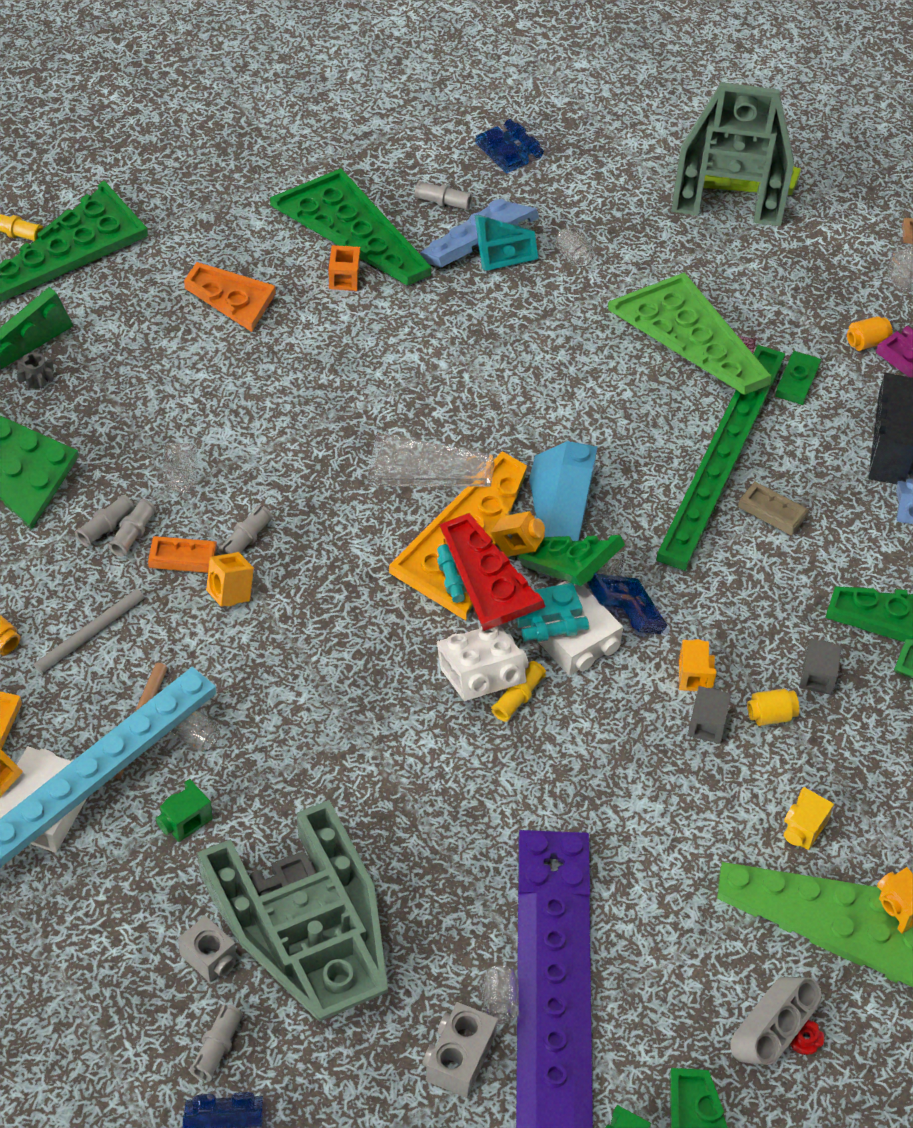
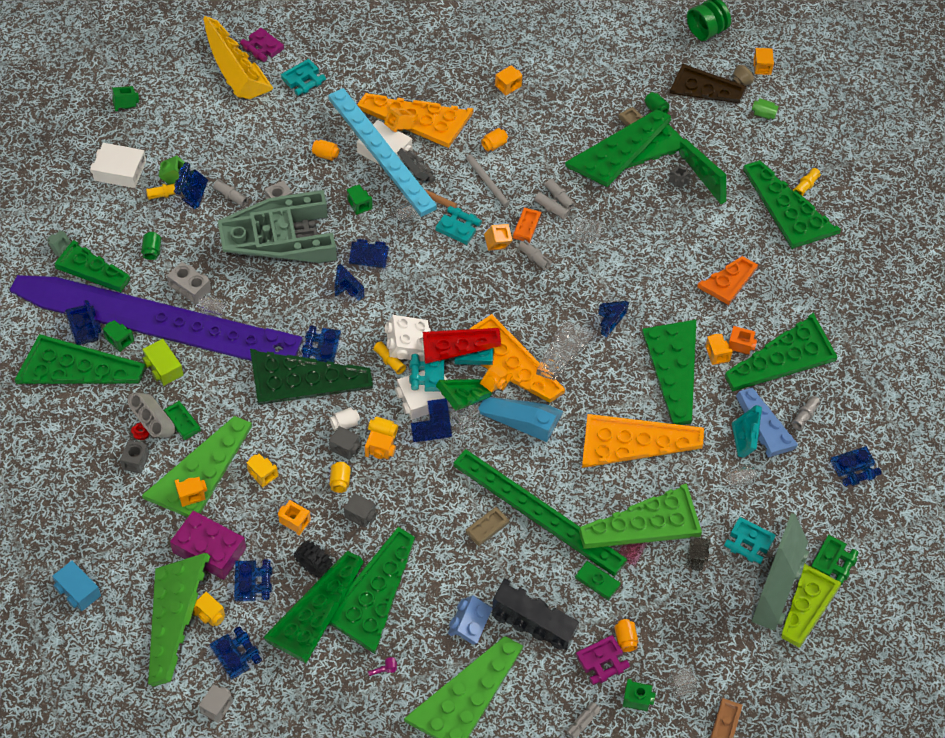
camera: 105 degrees right, 5 degrees up
(70, 898) = (325, 149): none -> light orange brick
(90, 729) = (416, 165): none -> dark grey plate
(213, 652) = (455, 229): none -> teal plate
(305, 768) = (369, 254): none -> clear blue bracket
(343, 412) = (613, 314): none -> clear blue slope
(367, 291) = (718, 349): none -> light orange brick
(383, 788) = (346, 281): none -> clear blue slope
(389, 345) = (673, 360): none -> green wing
(523, 790) = (327, 344): none -> clear blue plate
(558, 371) = (625, 439): none -> light orange wing
(611, 818) = (296, 377): none -> dark green wing
(655, 1040) = (162, 362): none -> lime brick
(656, 153) = (828, 556): none -> green plate
(660, 231) = (751, 535): none -> teal plate
(660, 668) = (383, 426): none -> yellow brick
(665, 725) = (346, 418): none -> white brick
(715, 277) = (697, 553): none -> clear smoke brick
(759, 973) = (182, 420): none -> green plate
(872, 756) = (293, 510): none -> light orange brick
(873, 1013) = (137, 463): none -> dark grey brick

